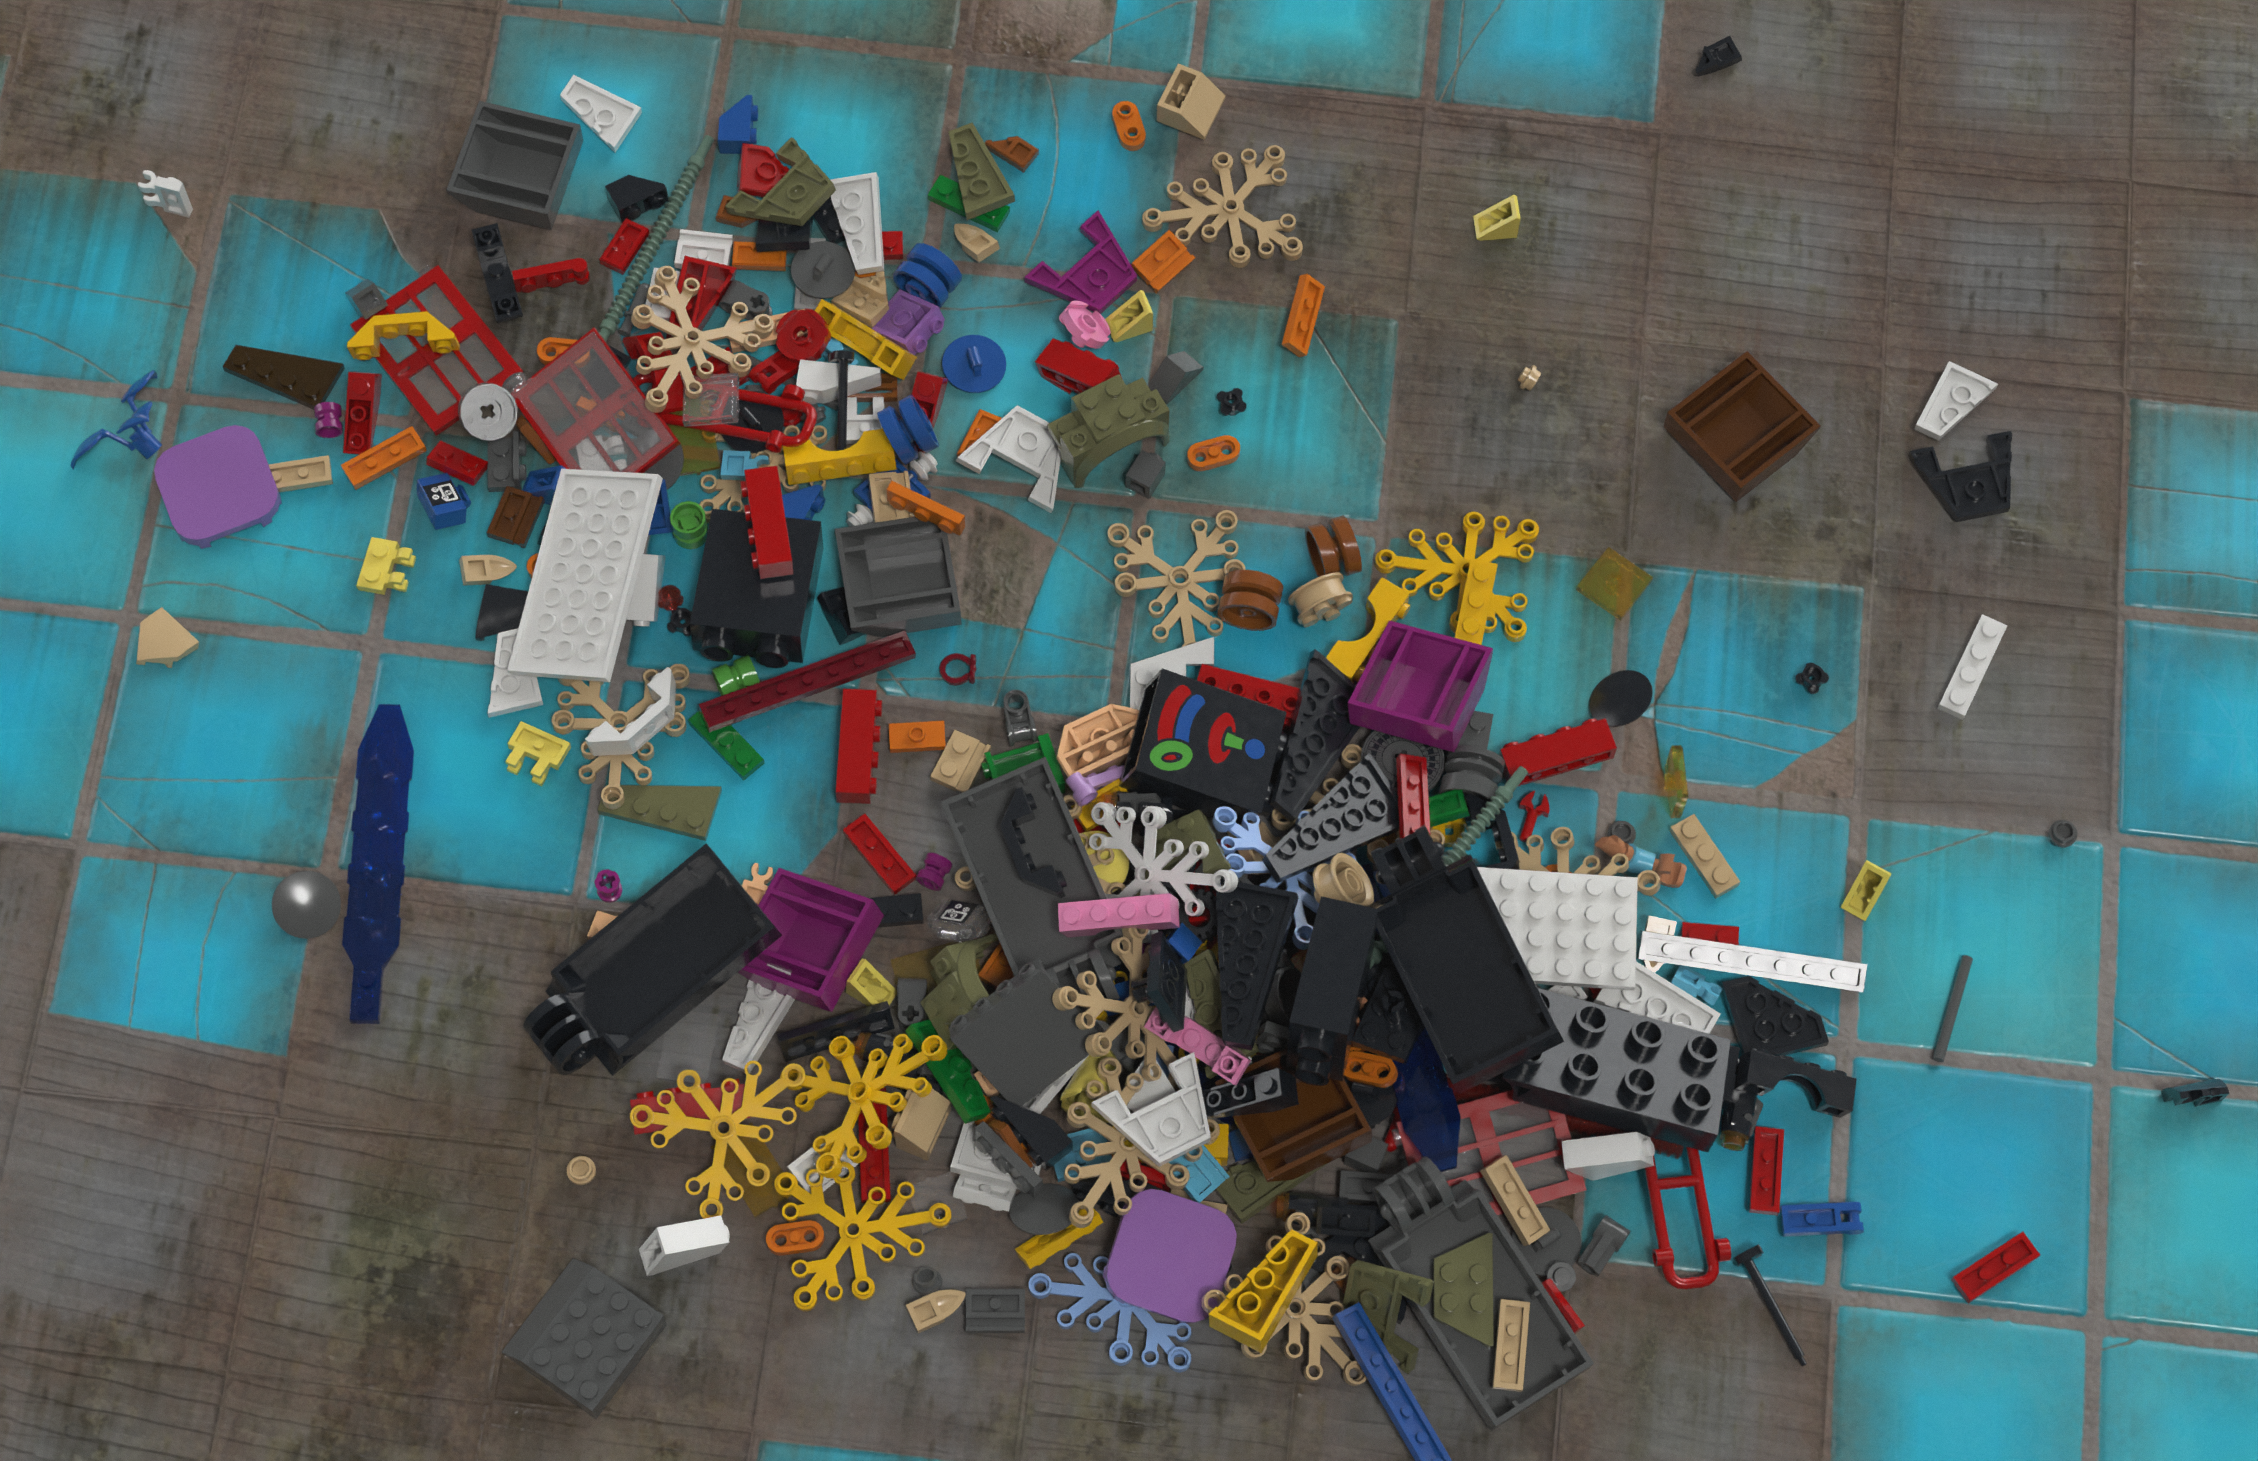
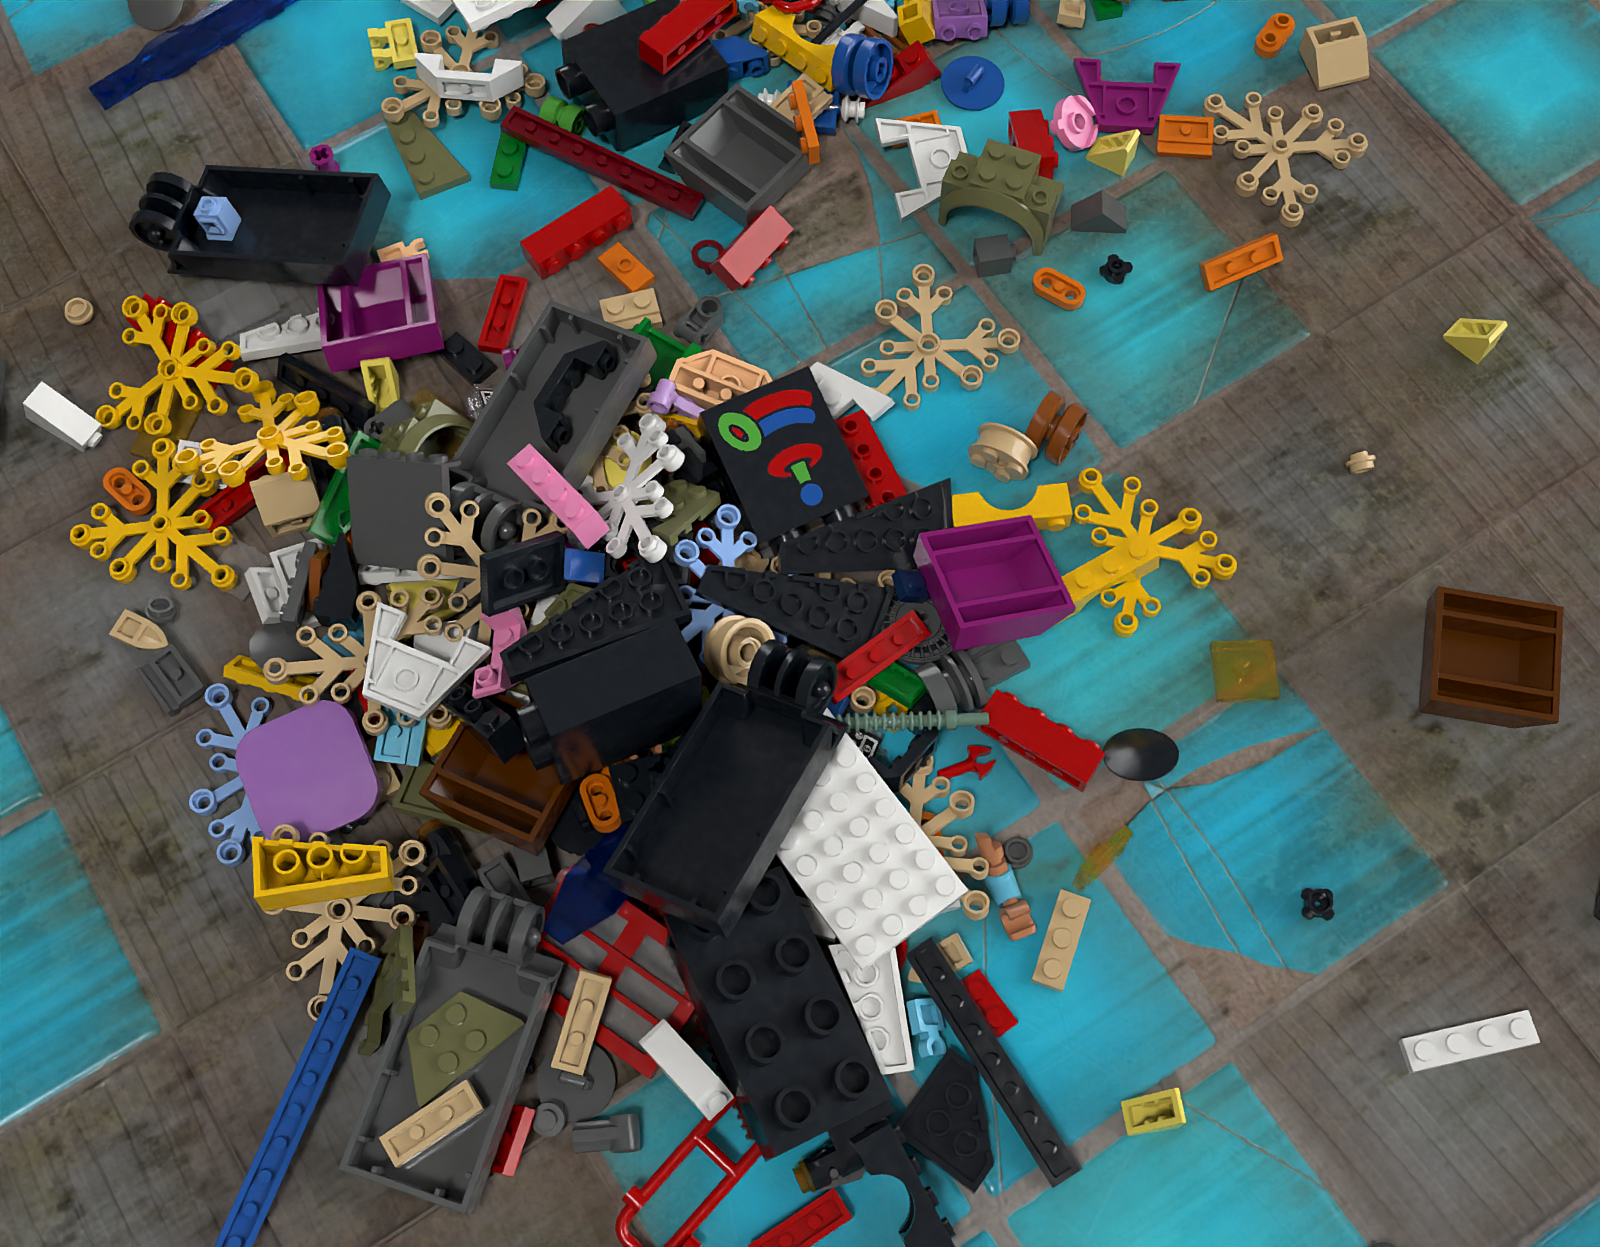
camera: 55 degrees right, 0 degrees up
(612, 997) = (217, 218): none -> light blue window
(987, 633) = (752, 249): none -> brick
(1250, 600) = (951, 402): dark orange wheel -> none
(1376, 742) = (910, 586): none -> dark blue plate

